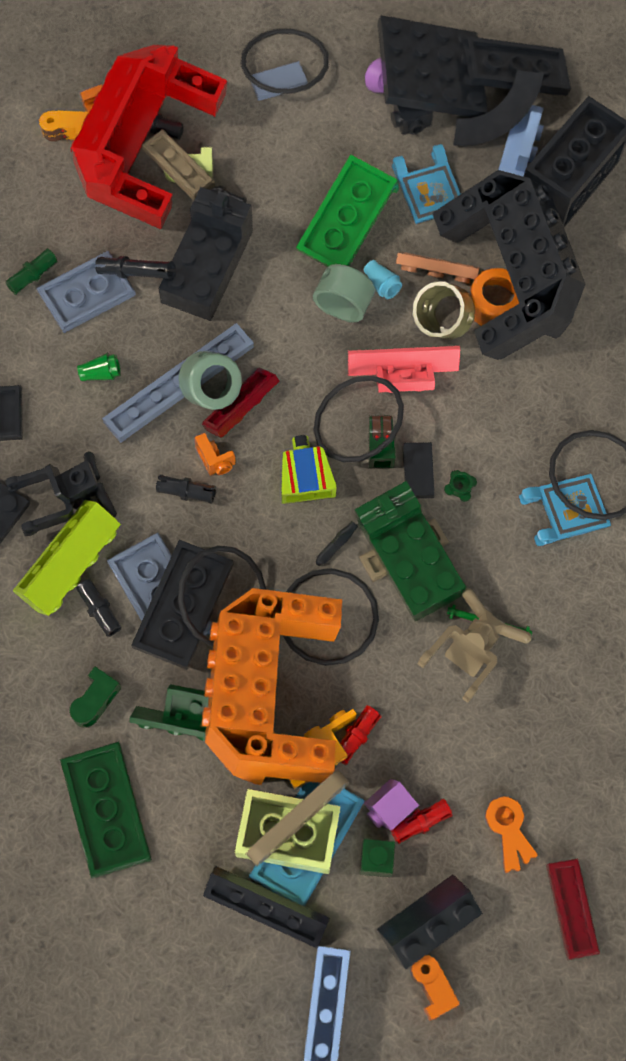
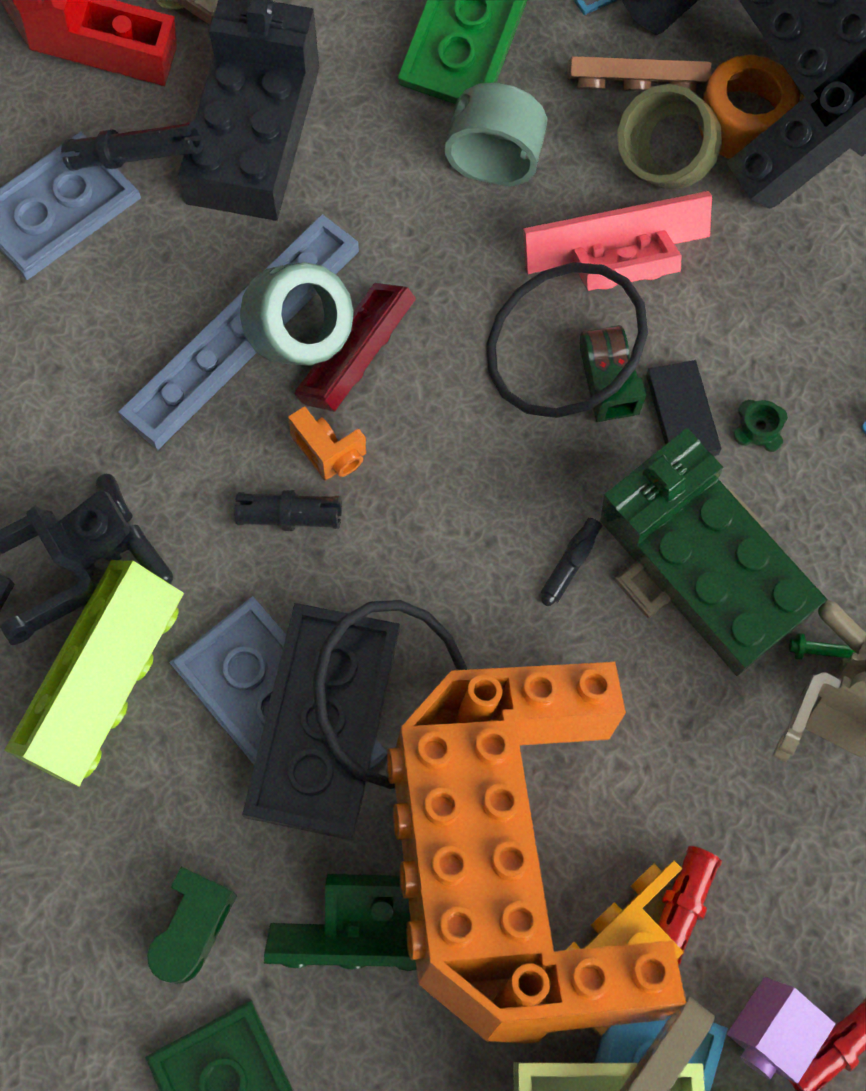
camera: 10 degrees left, 0 degrees up
(98, 607) = (169, 752): black pin -> none
(101, 368) = (101, 327): green cone -> none
(292, 646) = (669, 691): black piece -> none
(306, 473) = (494, 447): torso -> none
(385, 281) = (562, 108): medium azure cone -> none

